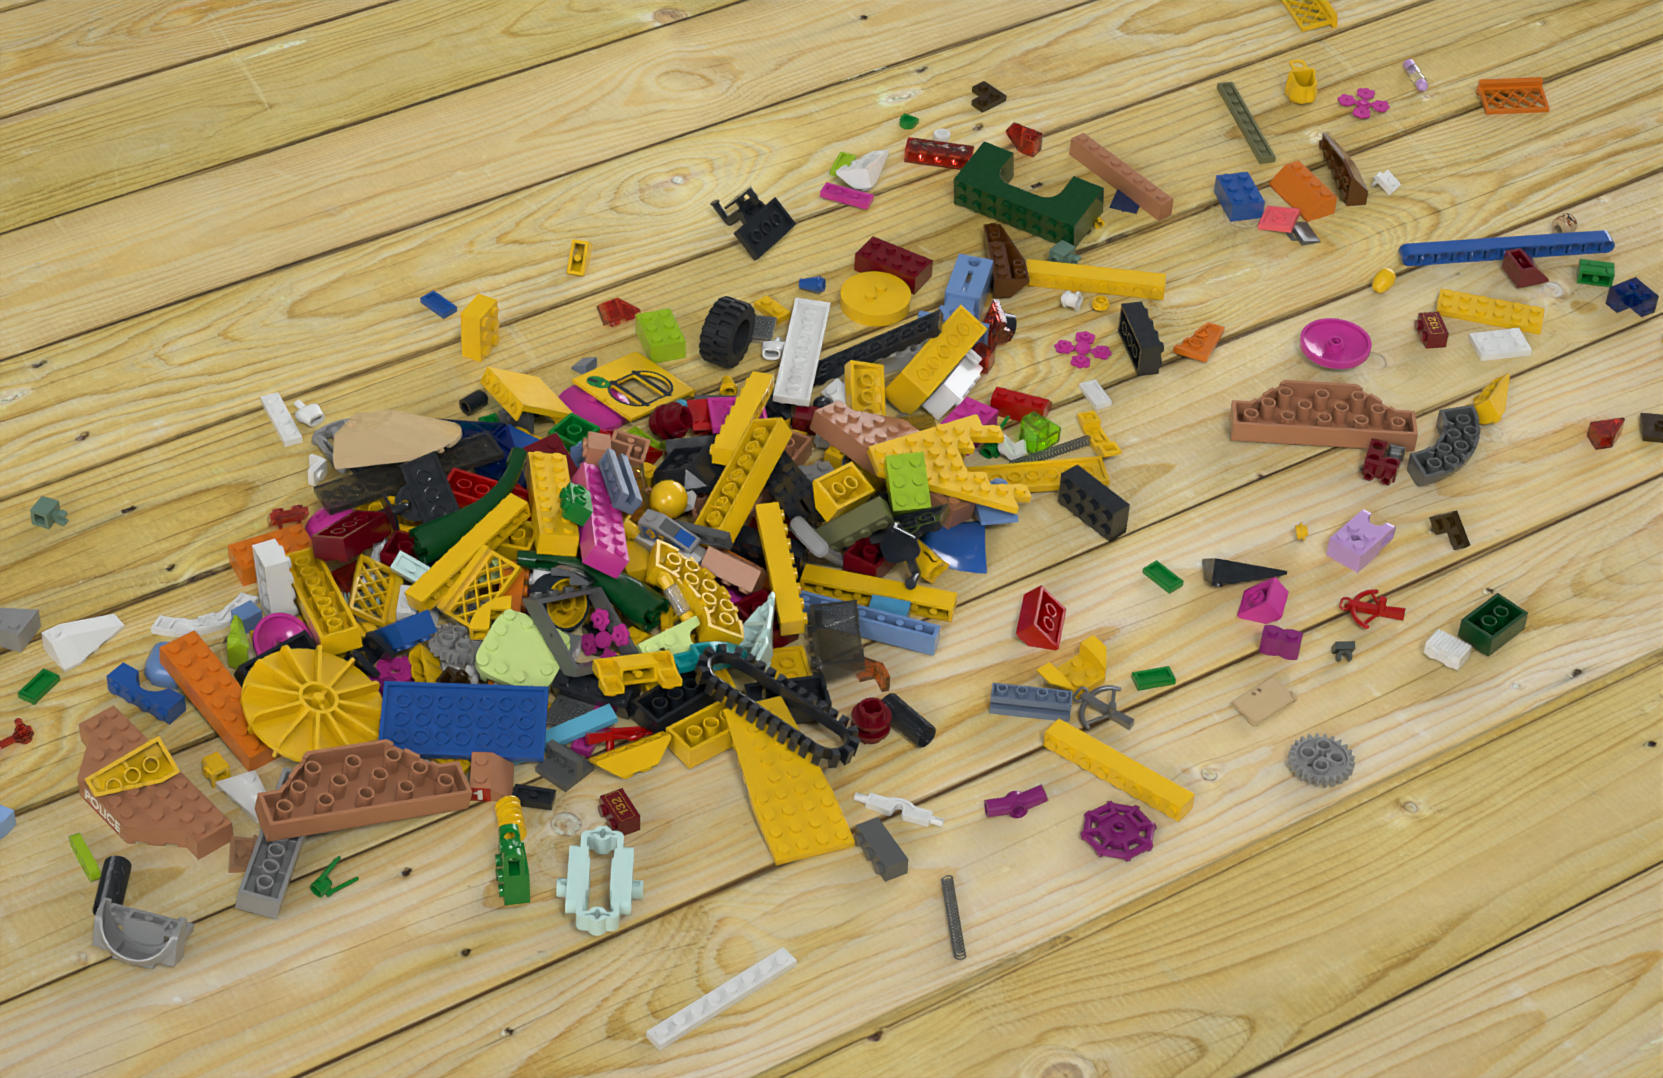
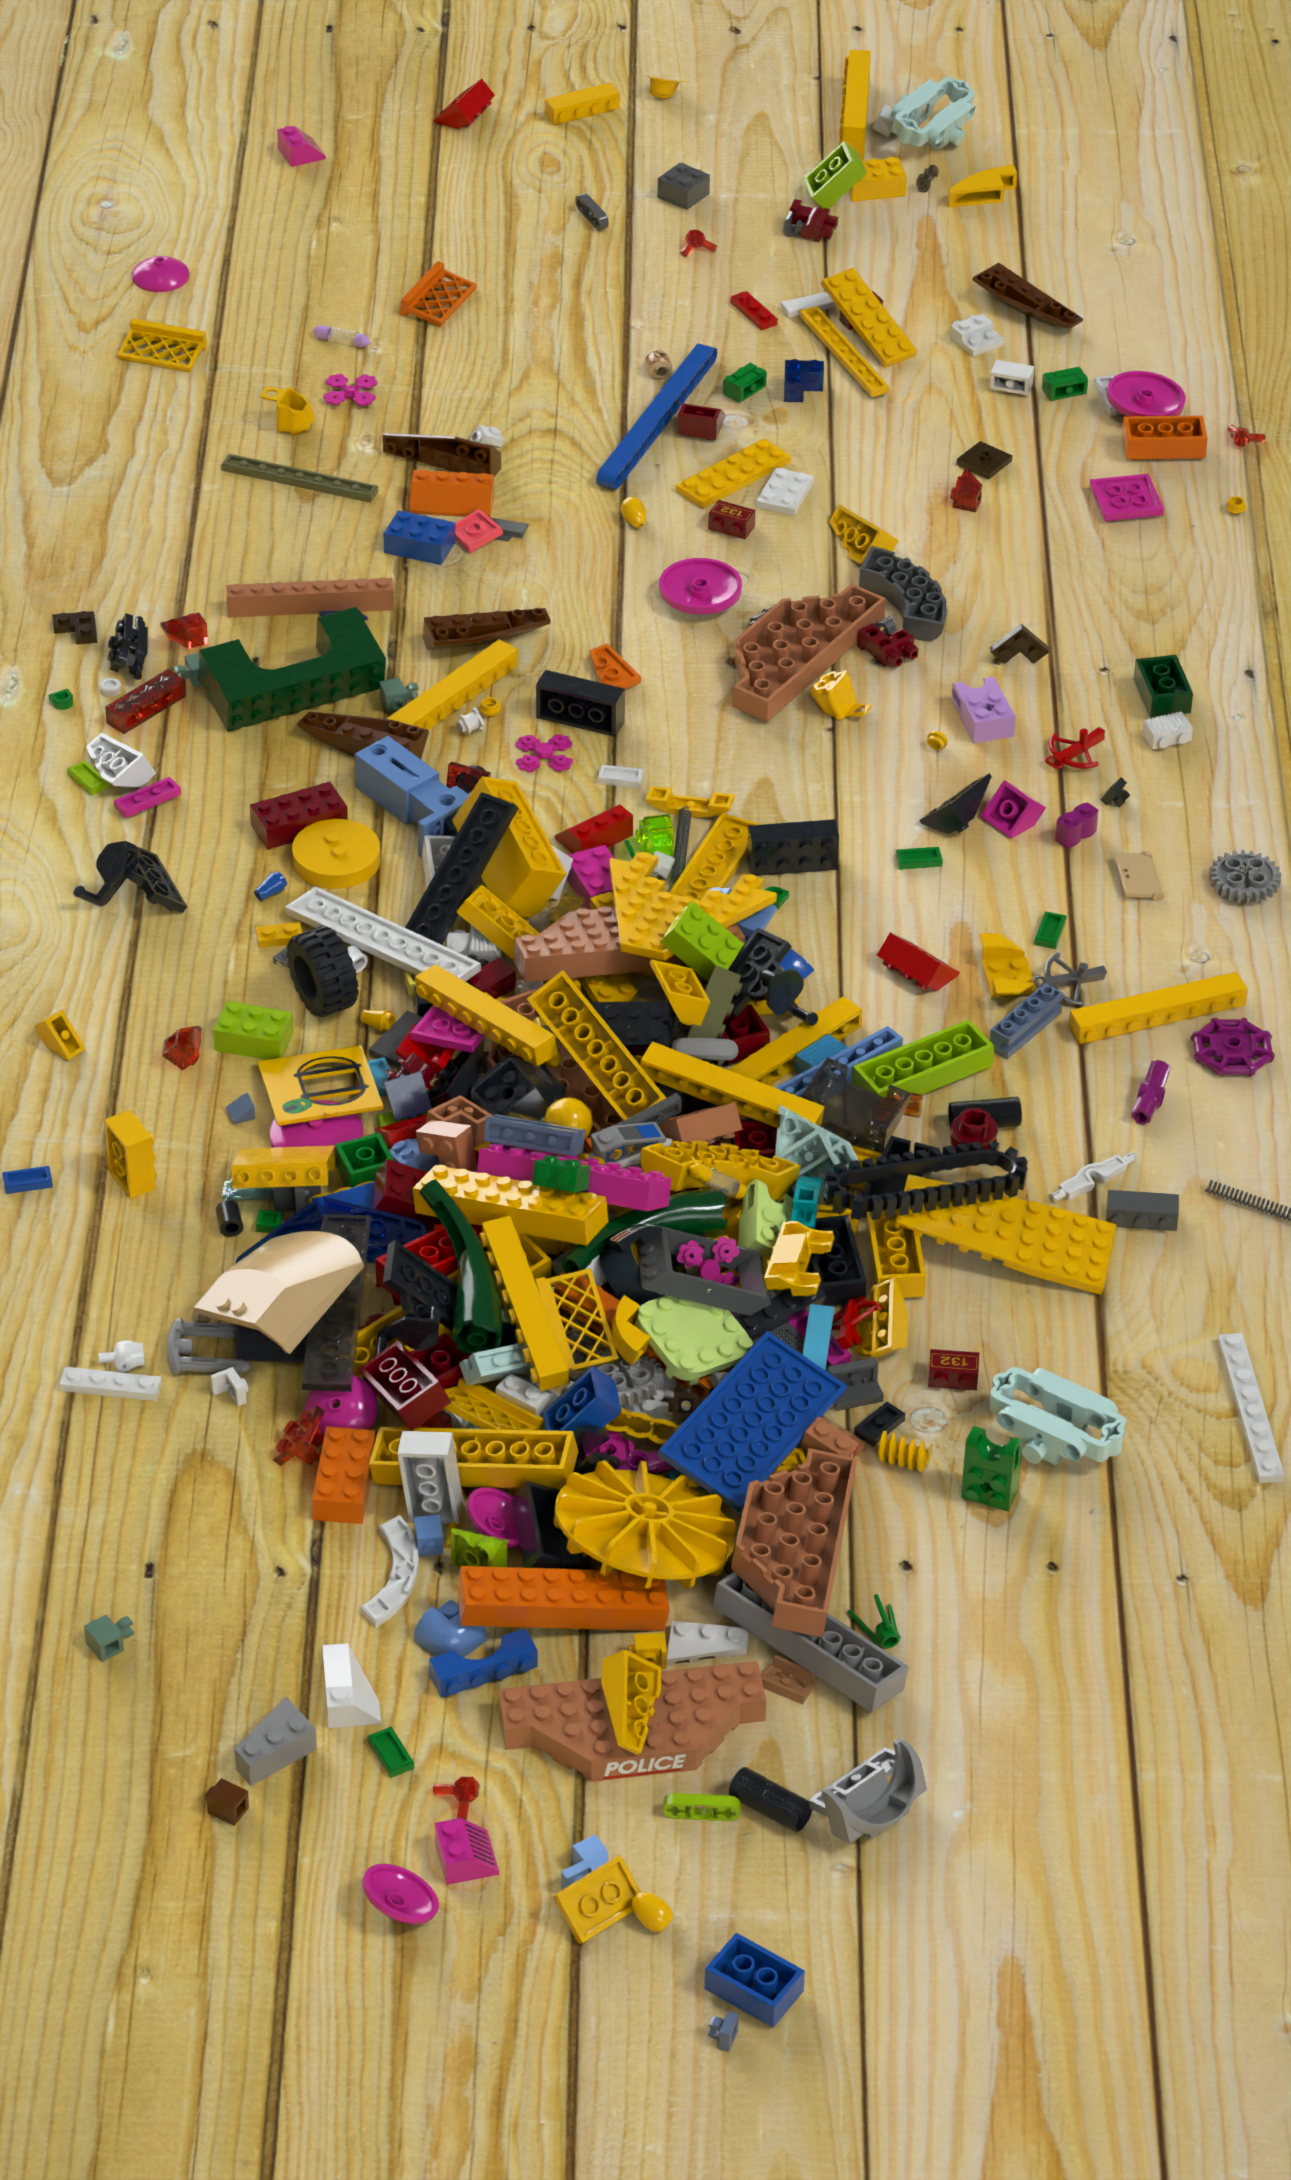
camera: 55 degrees left, 0 degrees up
(651, 424) = (407, 1095): none -> piece
(928, 665) = (927, 1061): none -> lime brick
(983, 121) = (129, 638): none -> black piece
(1044, 521) = (782, 895): none -> green tile
(1173, 262) = (480, 628): none -> reddish brown wedge
(1291, 460) = (837, 696): none -> yellow piece

